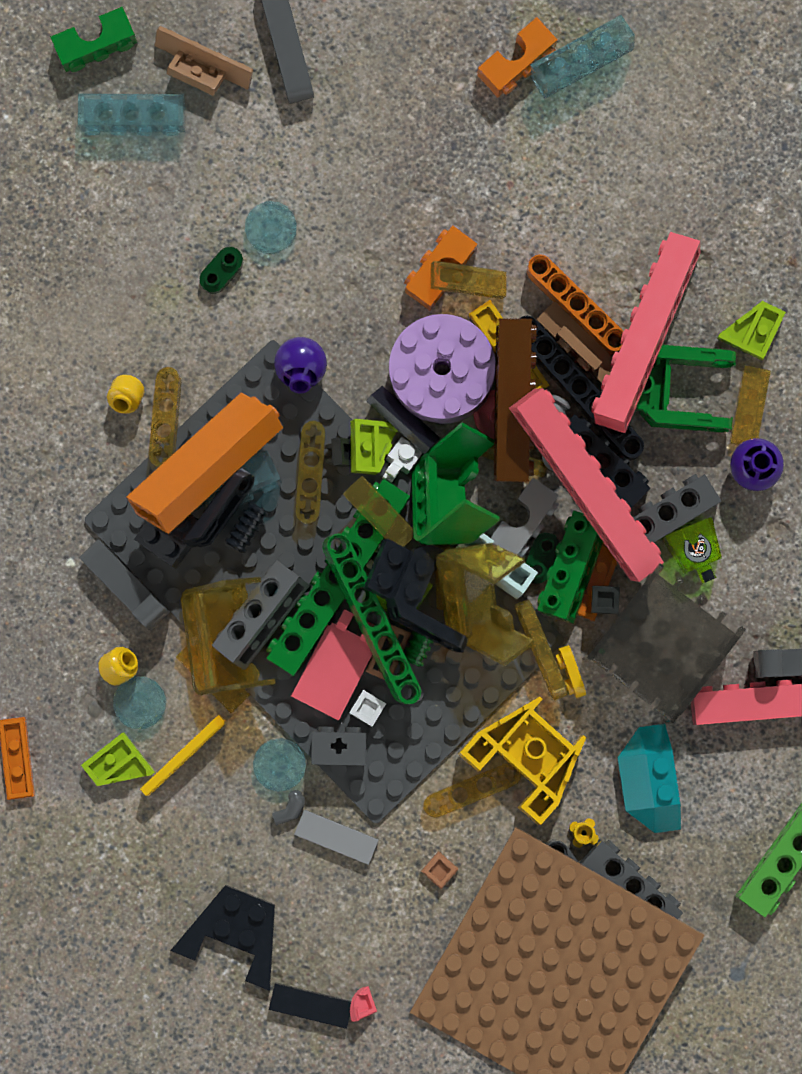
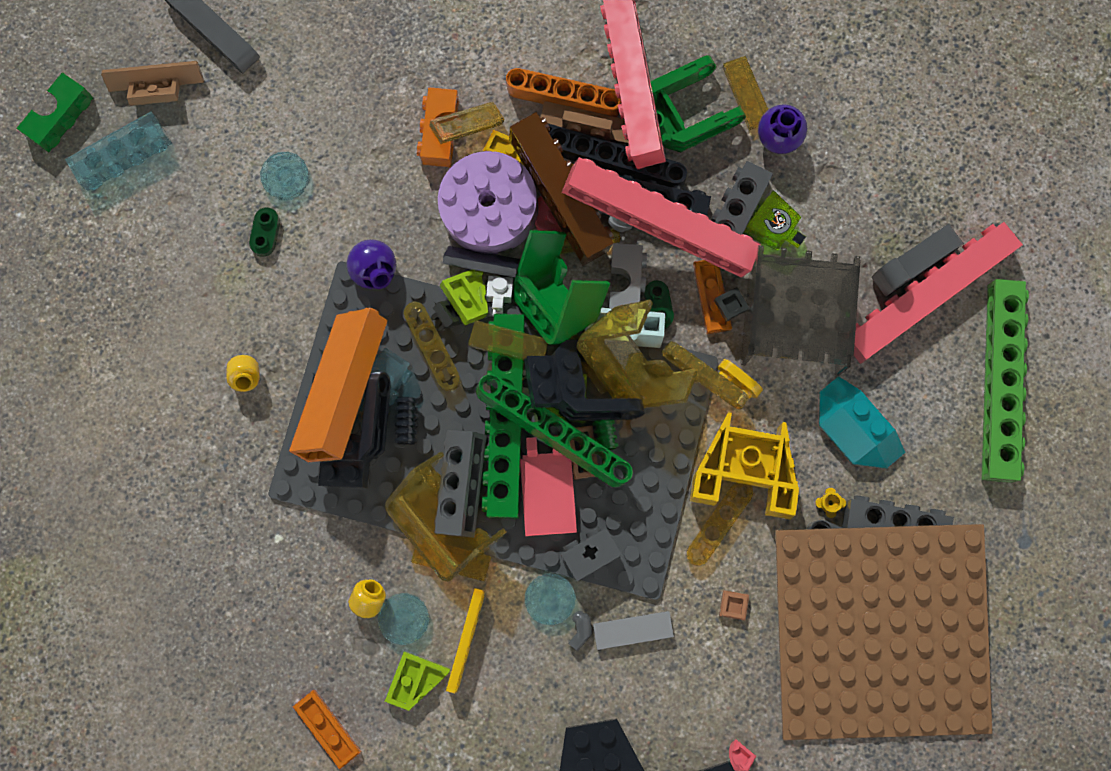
camera: 25 degrees left, 5 degrees down
(124, 585) = (333, 528): dark grey beam -> none
(160, 418) = (289, 372): clear yellow beam -> none
(367, 708) = (594, 507): white plate -> none
(571, 570) = (688, 297): green brick -> none
(754, 330) = (713, 33): lime wing -> none

